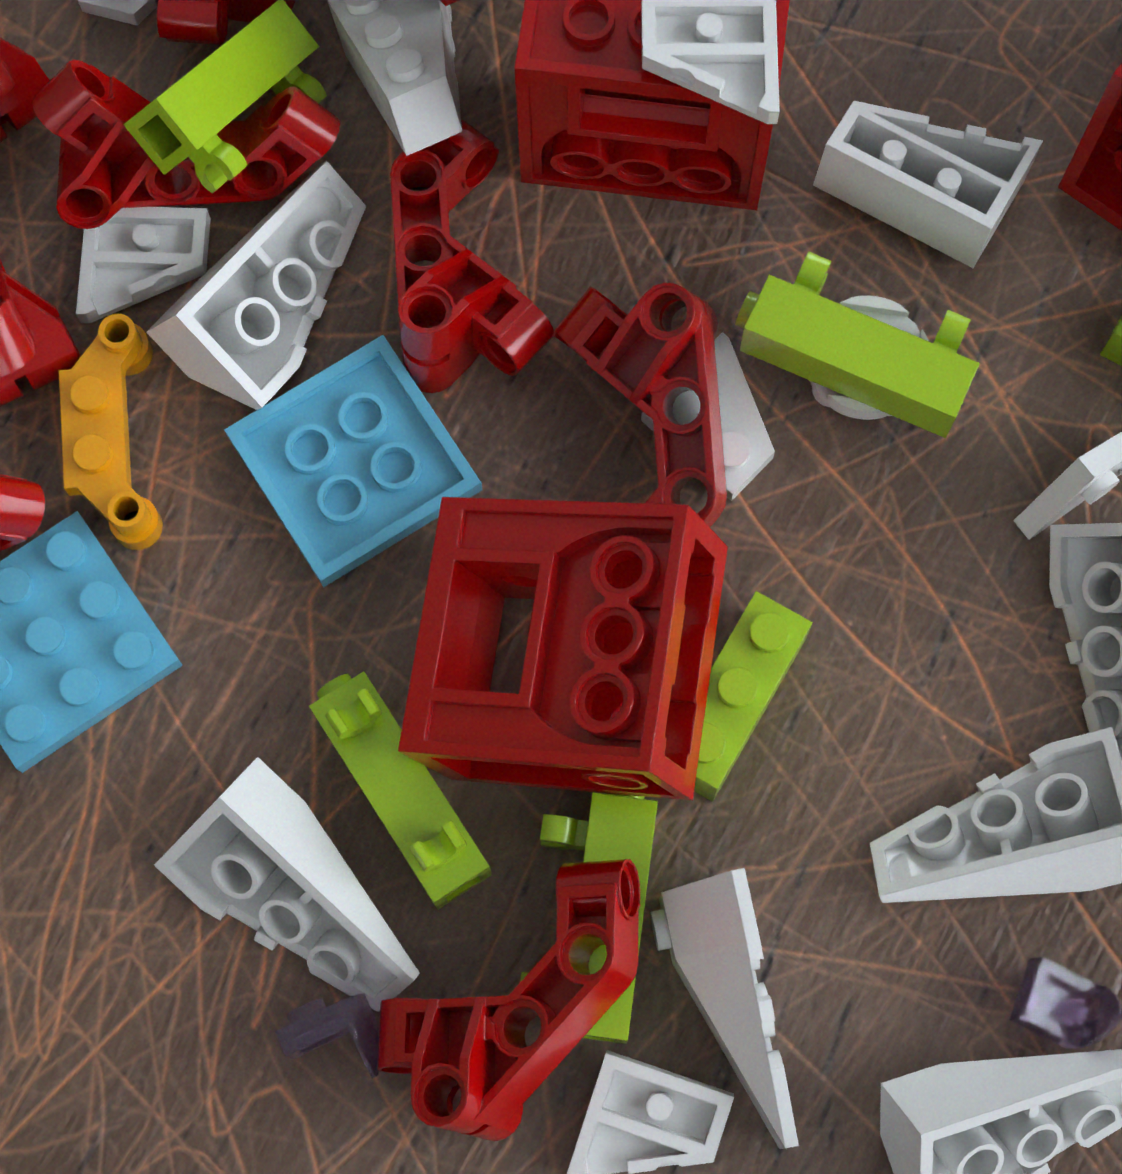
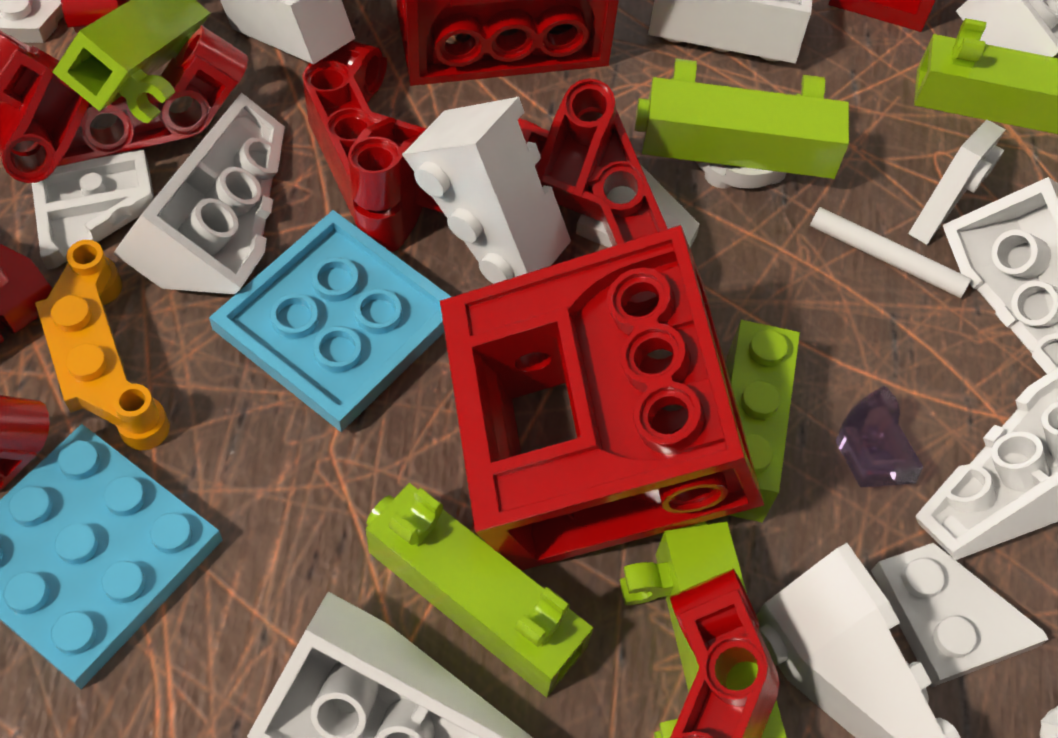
camera: 25 degrees left, 15 degrees down
(536, 379) = (489, 188): none -> white wedge
(856, 760) = (876, 444): none -> plate
(859, 953) = (951, 614): none -> white wing
(978, 539) = (890, 252): none -> white bar

